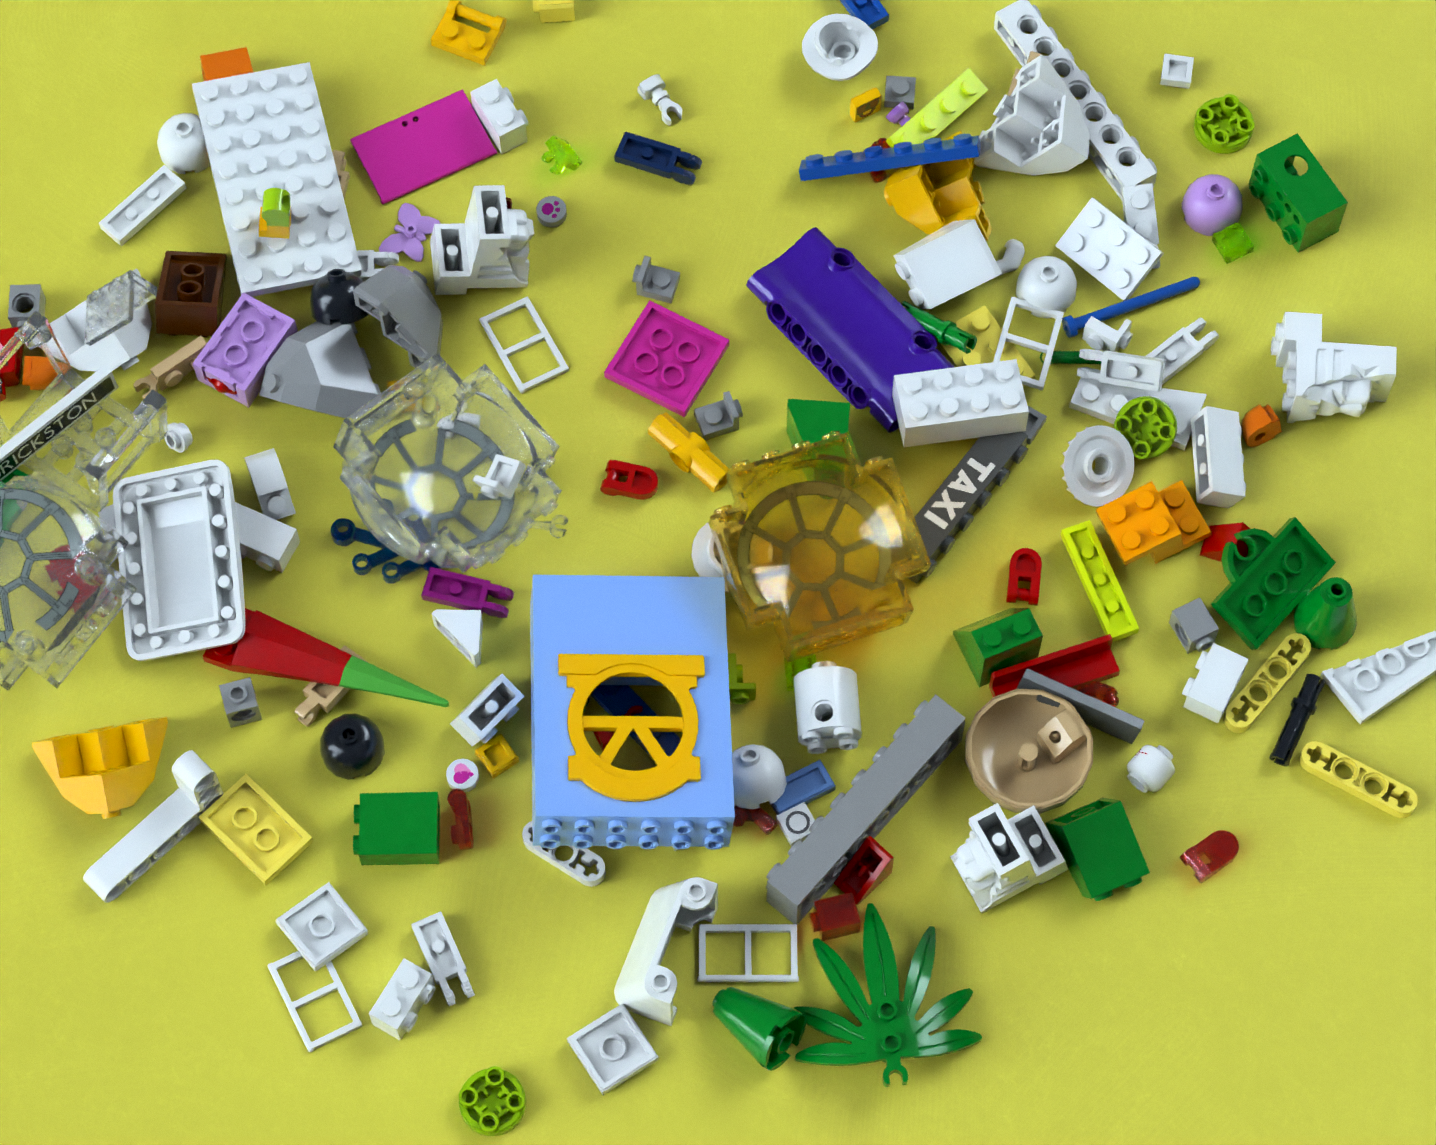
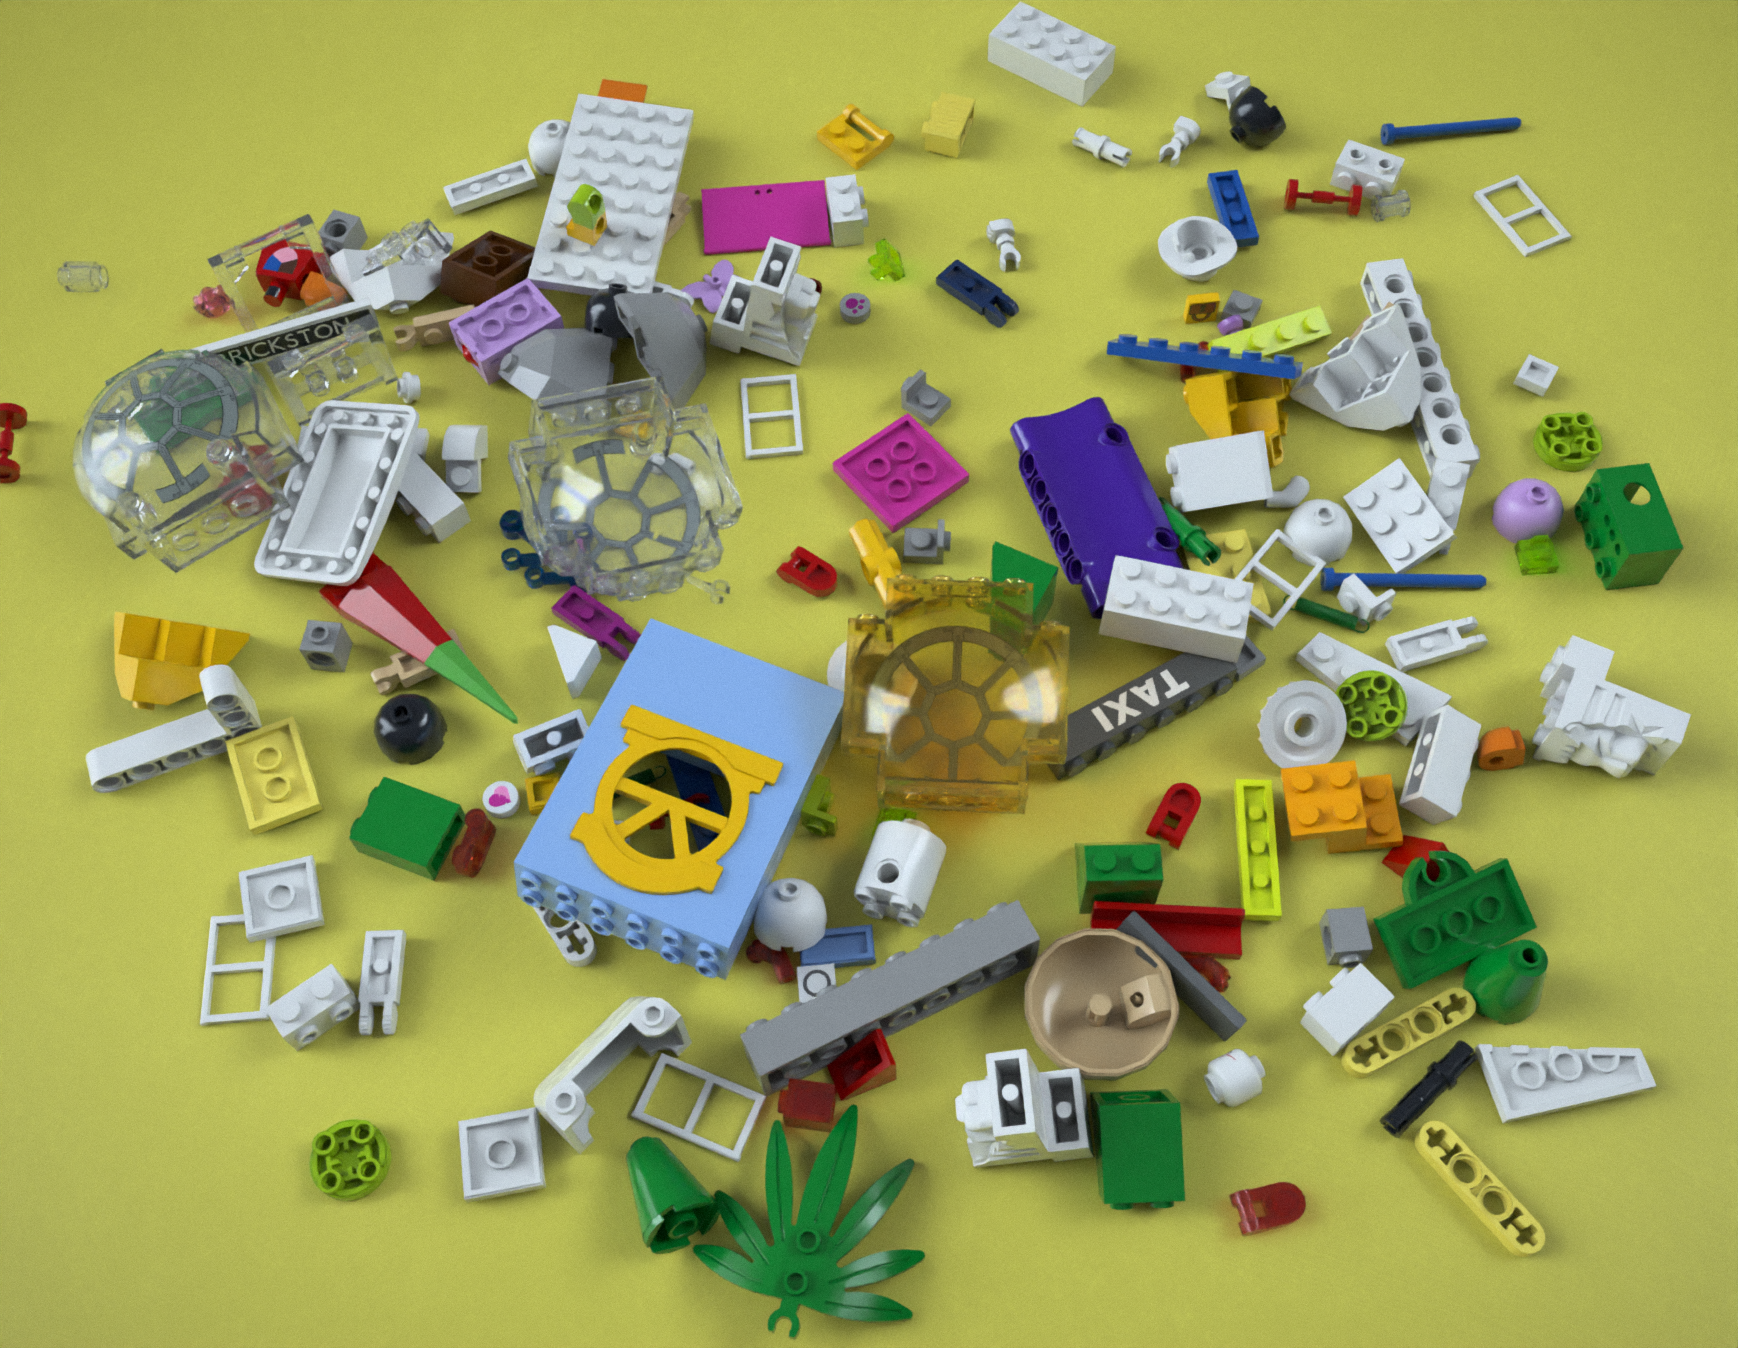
camera: 25 degrees right, 5 degrees down
(501, 477) = (679, 525): white bracket -> none
(1124, 369) = (1370, 639): white hinge -> none

